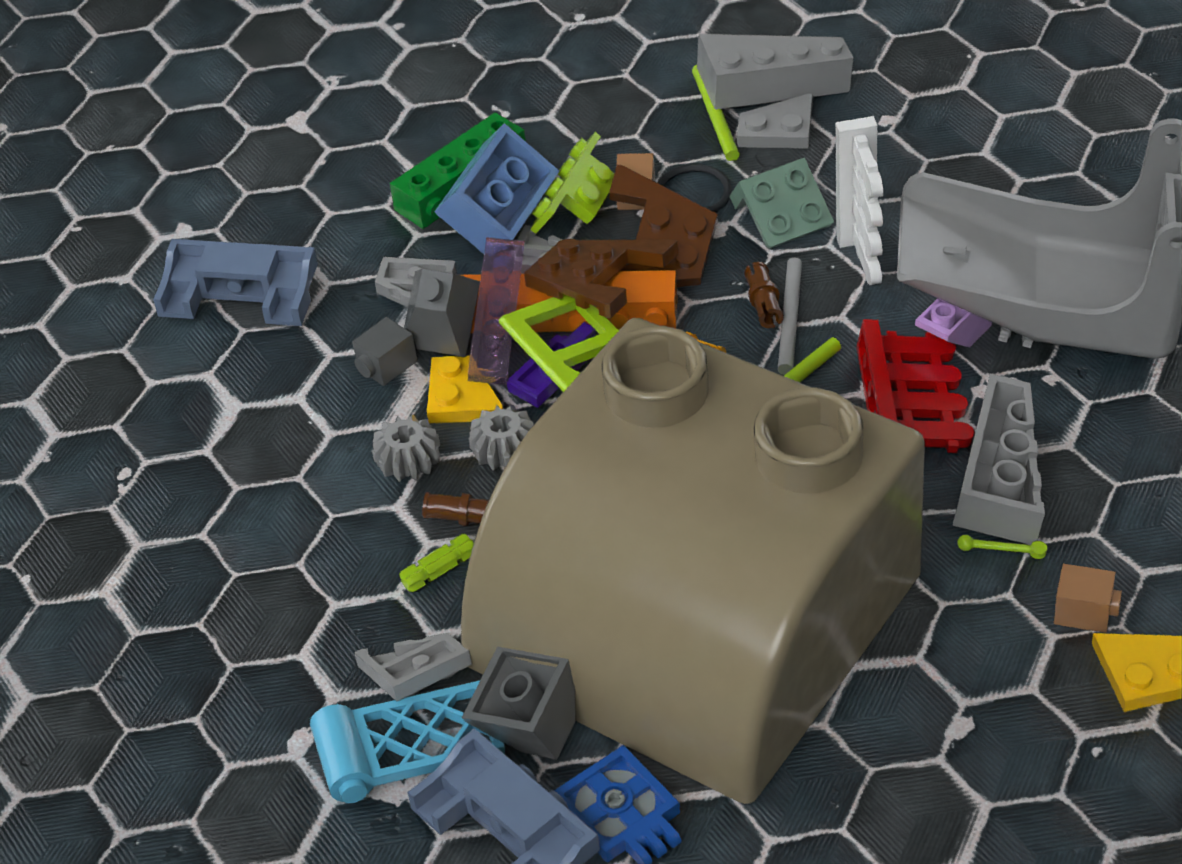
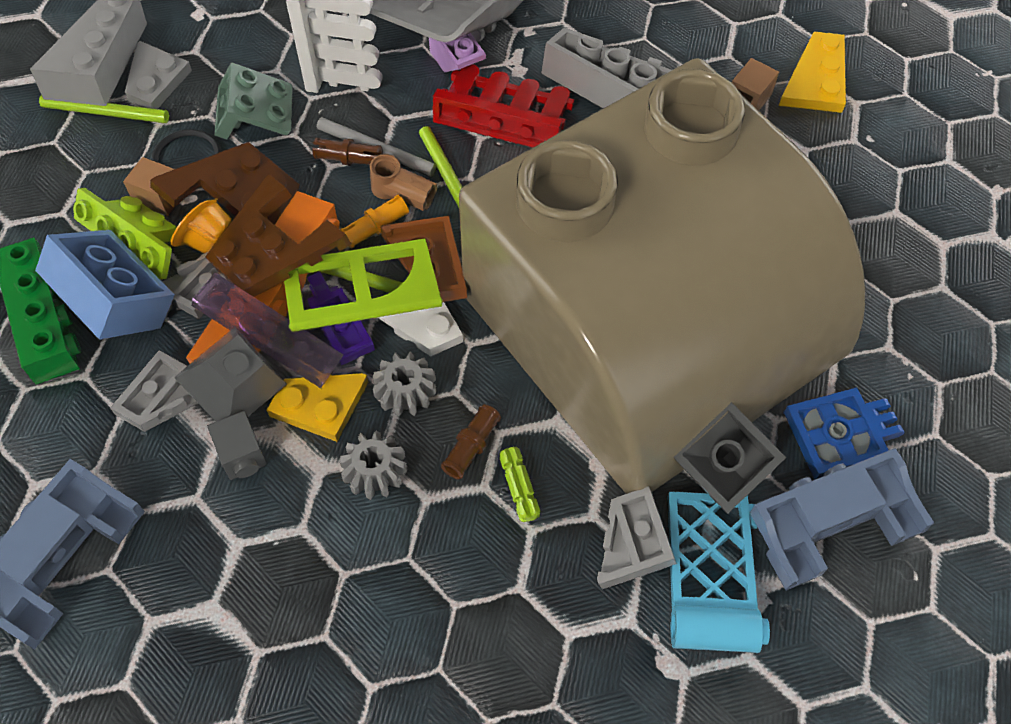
camera: 75 degrees left, 15 degrees up
(595, 219) = (202, 226): none -> light orange piece
(744, 334) = (390, 179): none -> medium nougat piece

